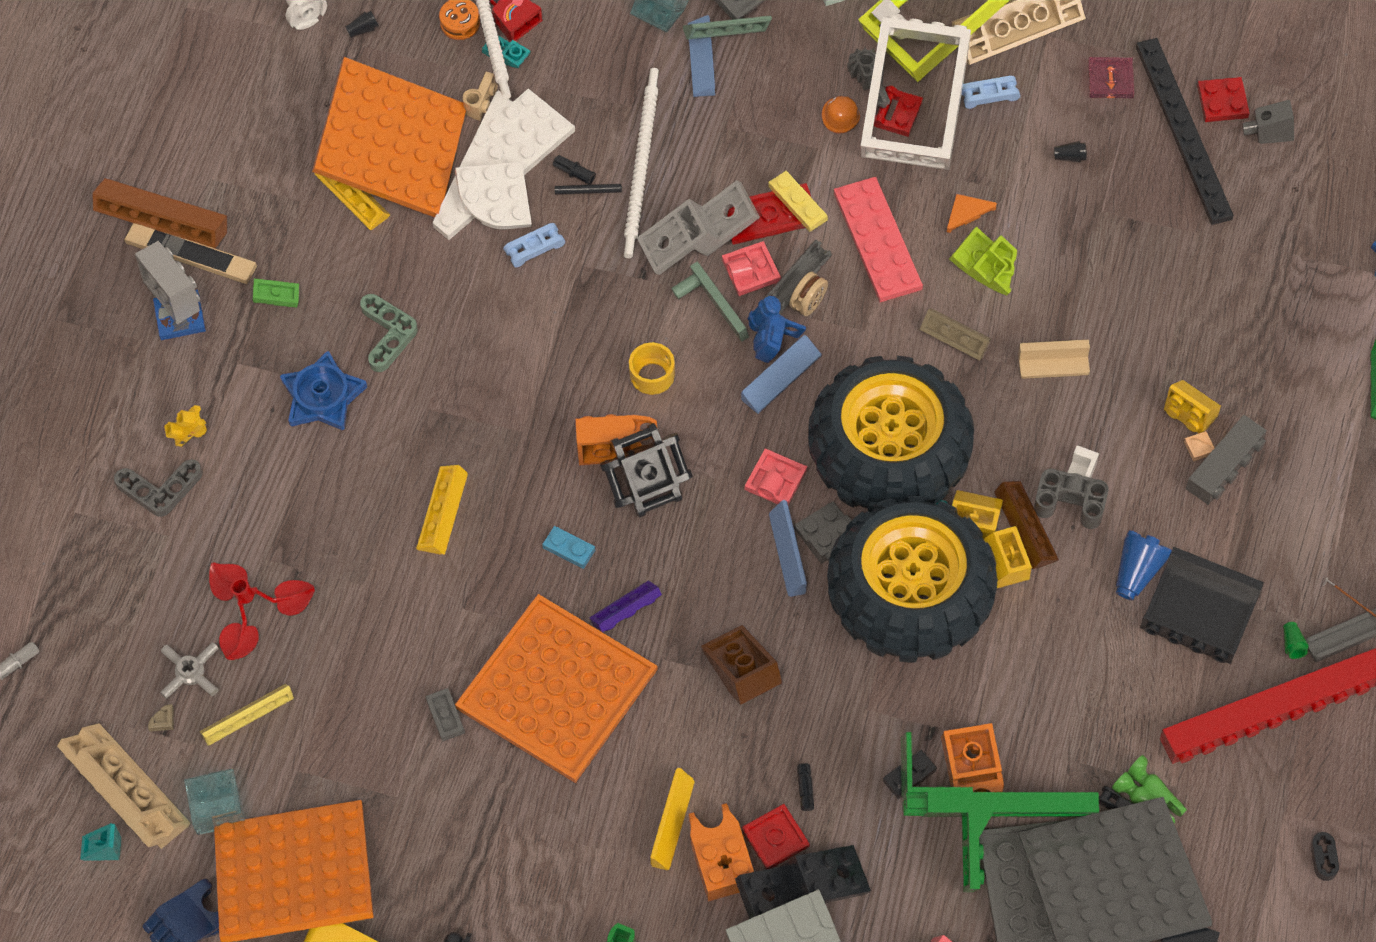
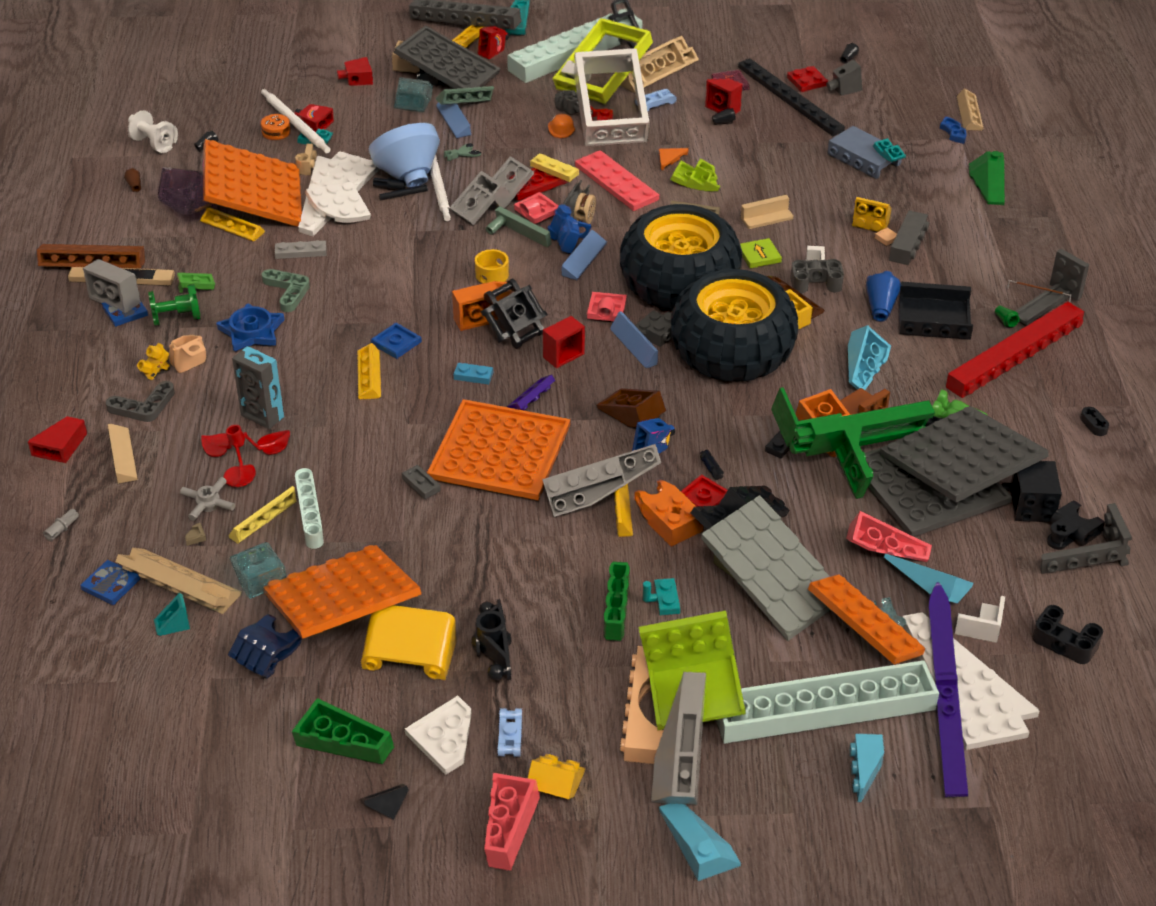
camera: 20 degrees left, 20 degrees down
(46, 524) = (59, 440): none -> red slope
(46, 766) = (110, 582): none -> blue tile
(112, 564) = (122, 453): none -> tan slope
(229, 420) = (187, 352): none -> light nougat piece
(244, 335) = (182, 304): none -> green piece
(250, 76) = (133, 179): none -> reddish brown cone
(288, 523) = (258, 387): none -> dark grey piece
(301, 120) = (182, 190): none -> windscreen
(302, 730) = (309, 508): none -> light aqua beam
(424, 263) = (300, 249): none -> light grey plate
(492, 462) = (396, 340): none -> blue tile
(534, 244) = (376, 224): light blue plate -> none
(605, 140) = (406, 152): none -> light blue cone
(646, 784) = (596, 481): none -> light grey wedge
(692, 129) = (465, 150): none -> sand green piece
(692, 534) = (563, 341): none -> red piece
(745, 728) = (653, 432): none -> blue torso
(1015, 431) = (760, 253): none -> lime tile
(1034, 744) = (862, 401): none -> dark orange bracket
(1073, 661) = (865, 356): none -> medium azure wedge
(1082, 118) = (723, 95): none -> red slope
(1237, 275) = (857, 150): none -> sand blue panel
(1265, 294) = (888, 151): none -> teal slope
(1305, 62) = (850, 51): none -> black cone

